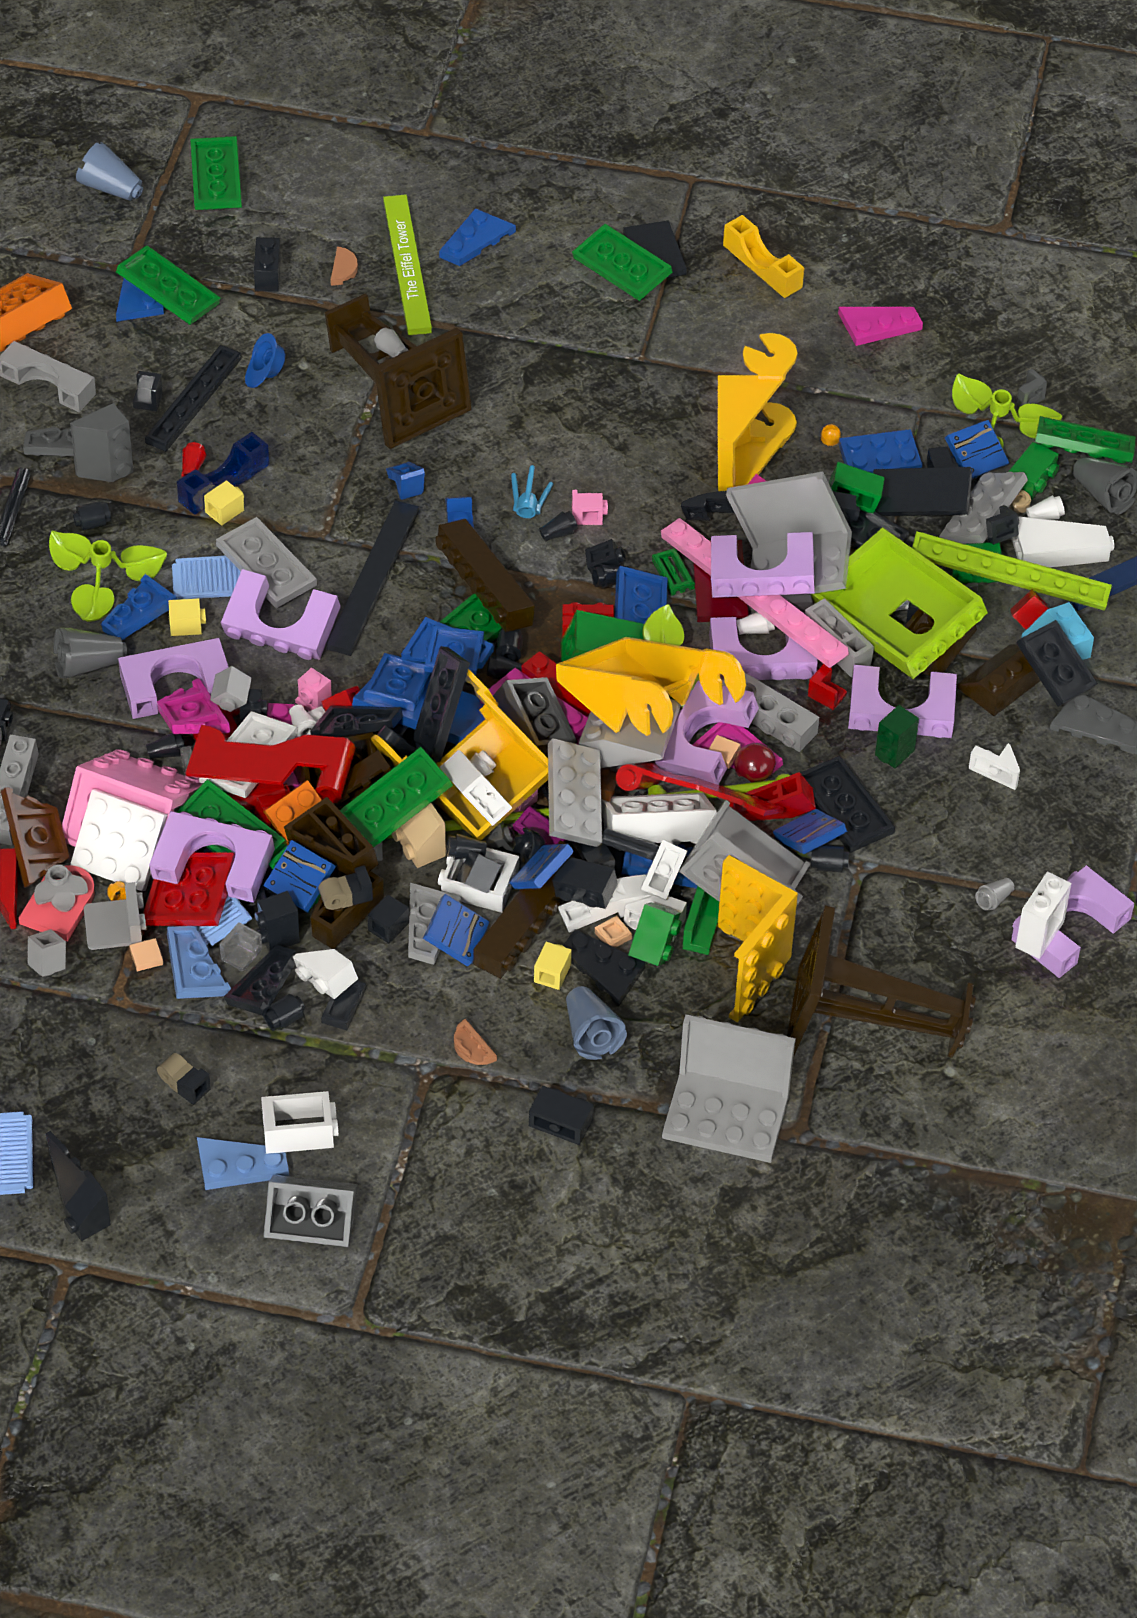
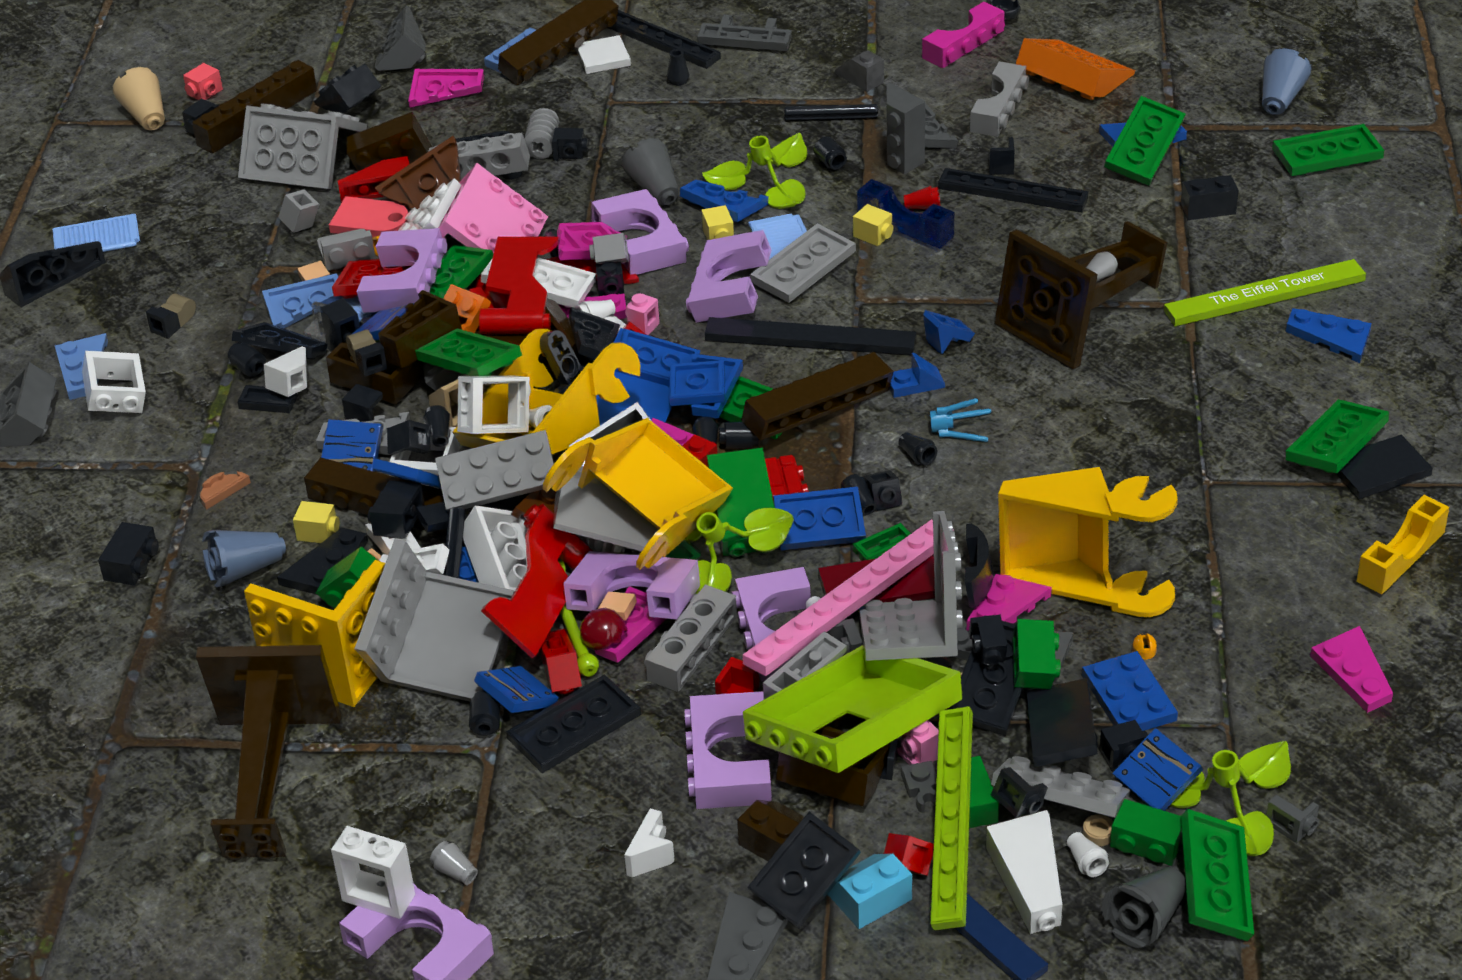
camera: 85 degrees right, 10 degrees down
(60, 892) = (375, 207): light grey plate -> none
(265, 361) = (1074, 221): blue piece -> none
(344, 266) = (1238, 252): nougat tile -> none
(440, 703) = (569, 368): black tile -> none
(588, 508) = (949, 462): bright pink brick -> none
(730, 1088) = (144, 670): light grey bracket -> none
(734, 579) = (862, 604): lavender arch -> none
(896, 736) = (660, 739): dark green brick -> none

